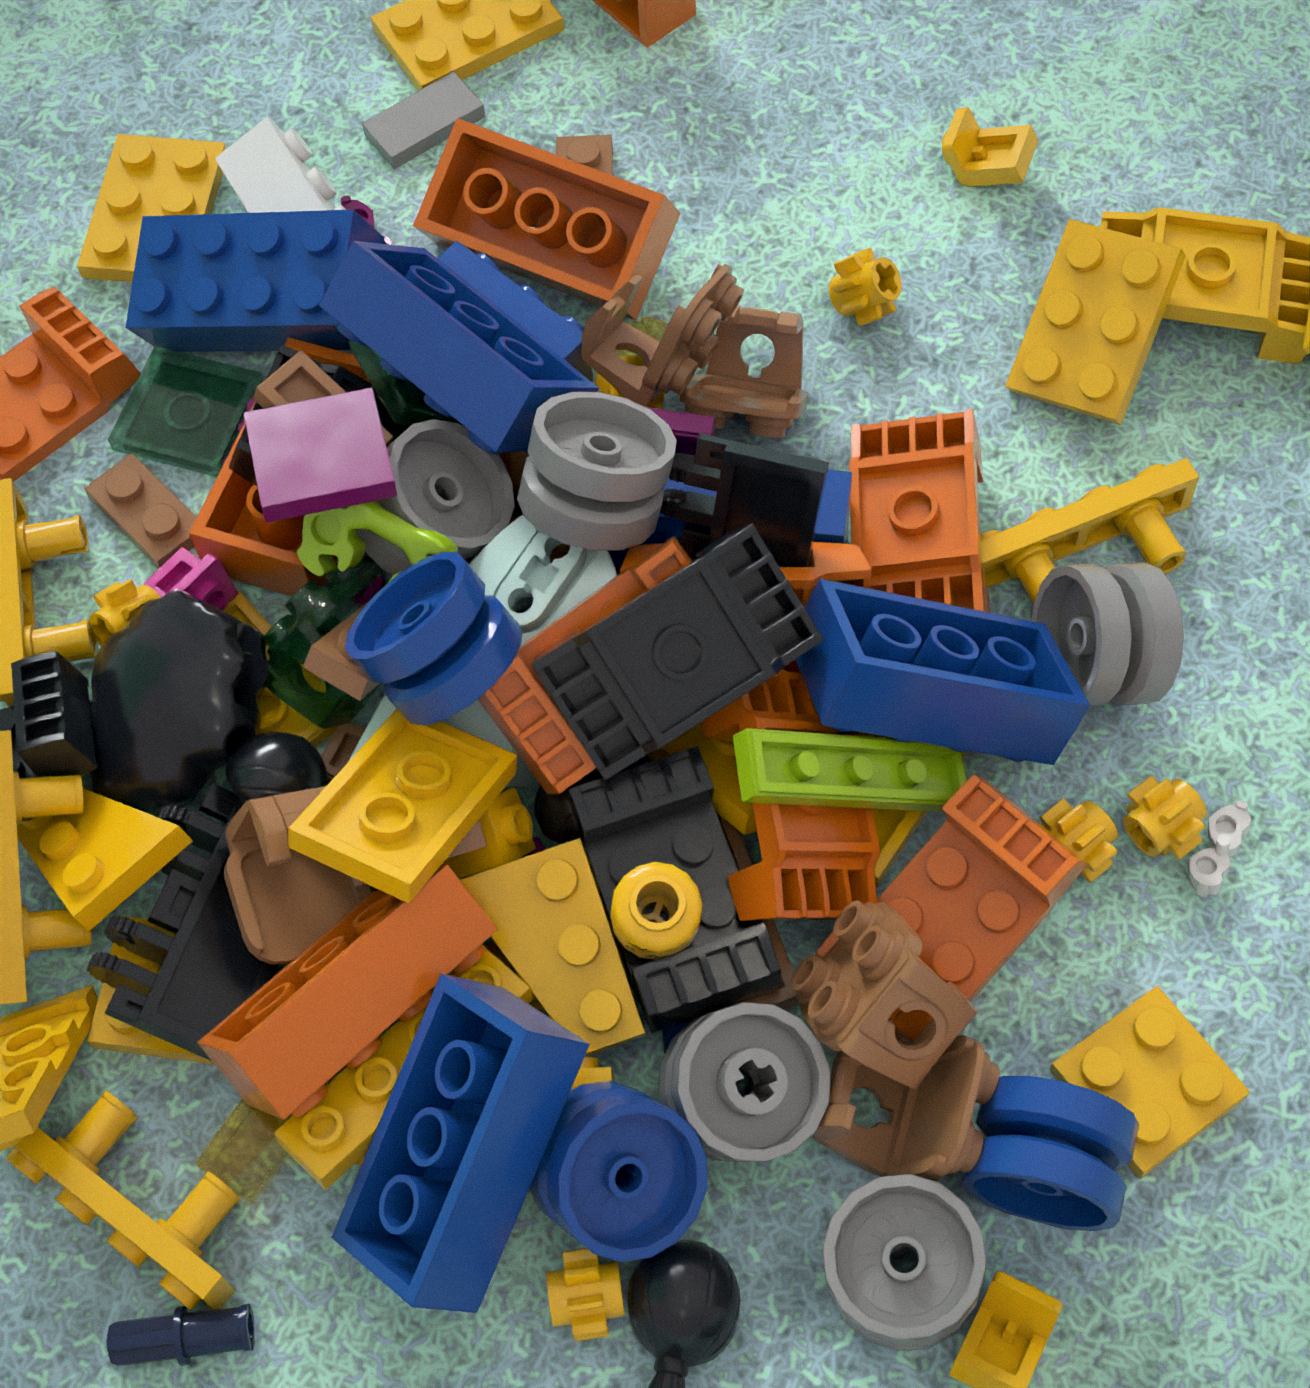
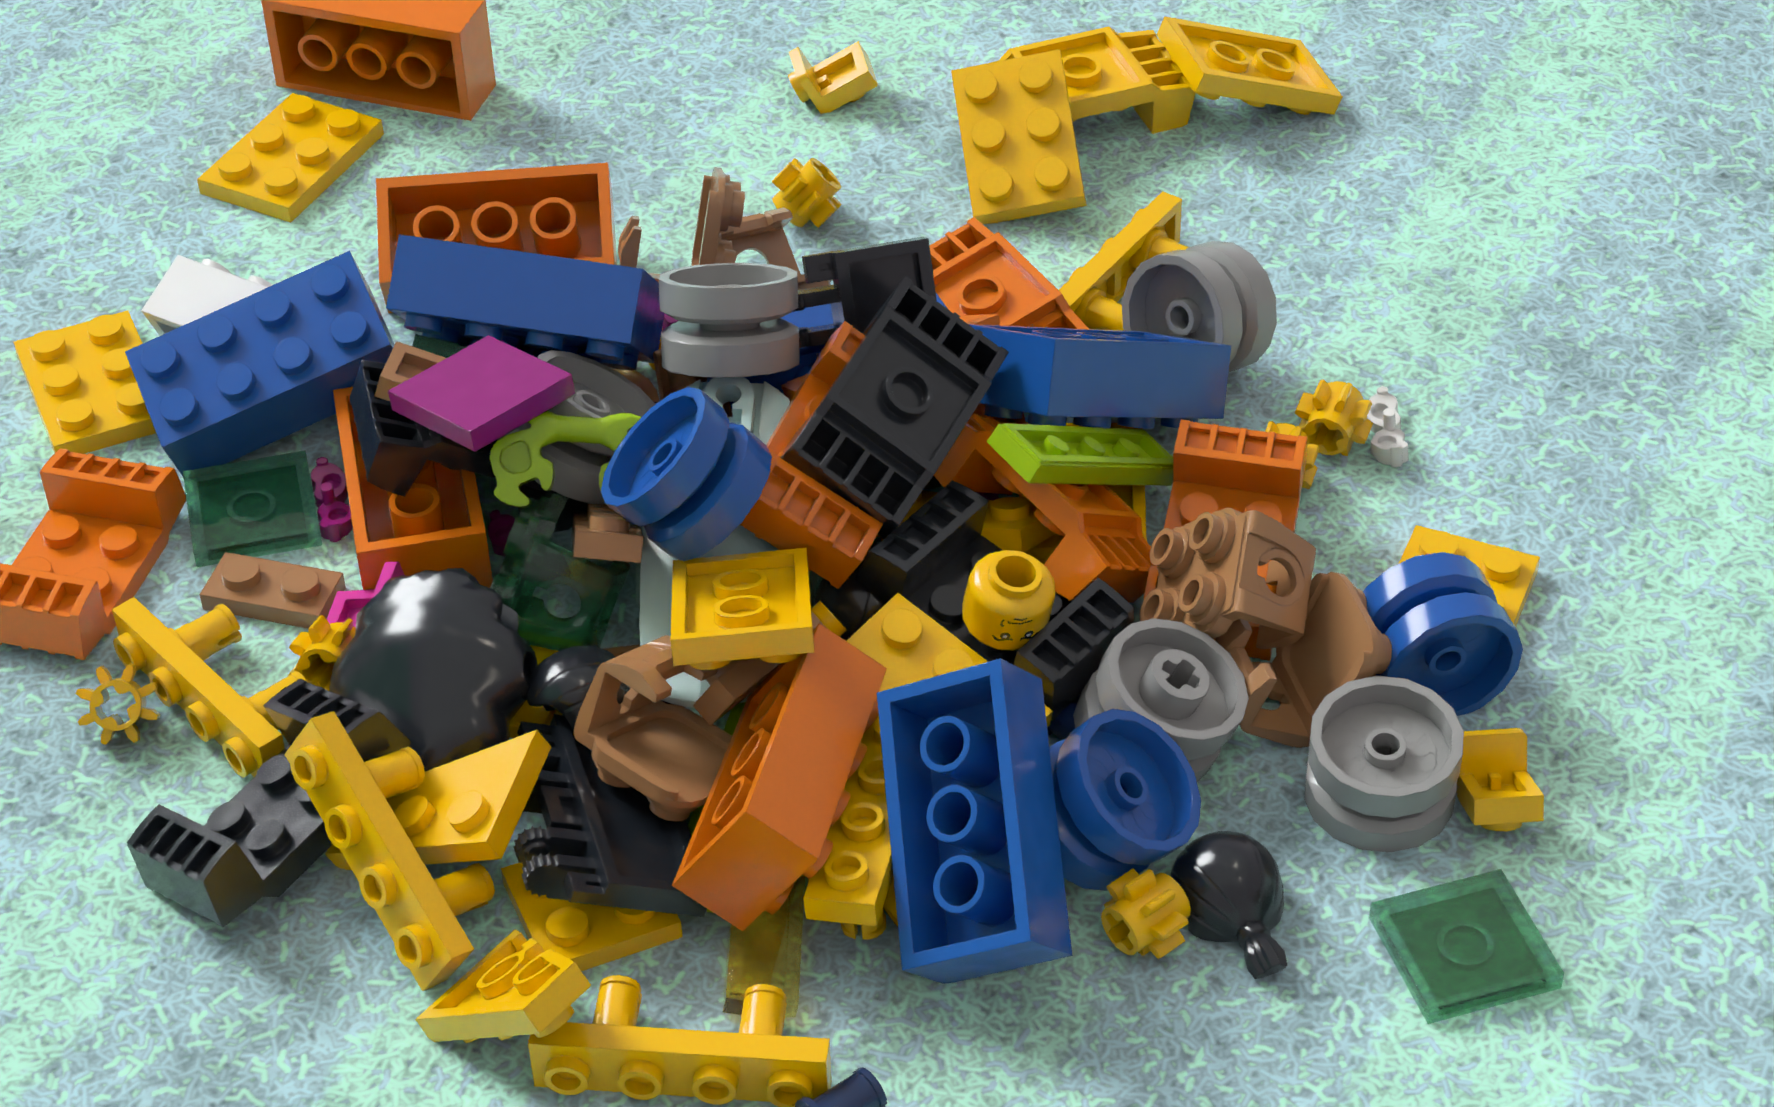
camera: 35 degrees left, 20 degrees down
(422, 119) = (307, 232): light grey tile -> none

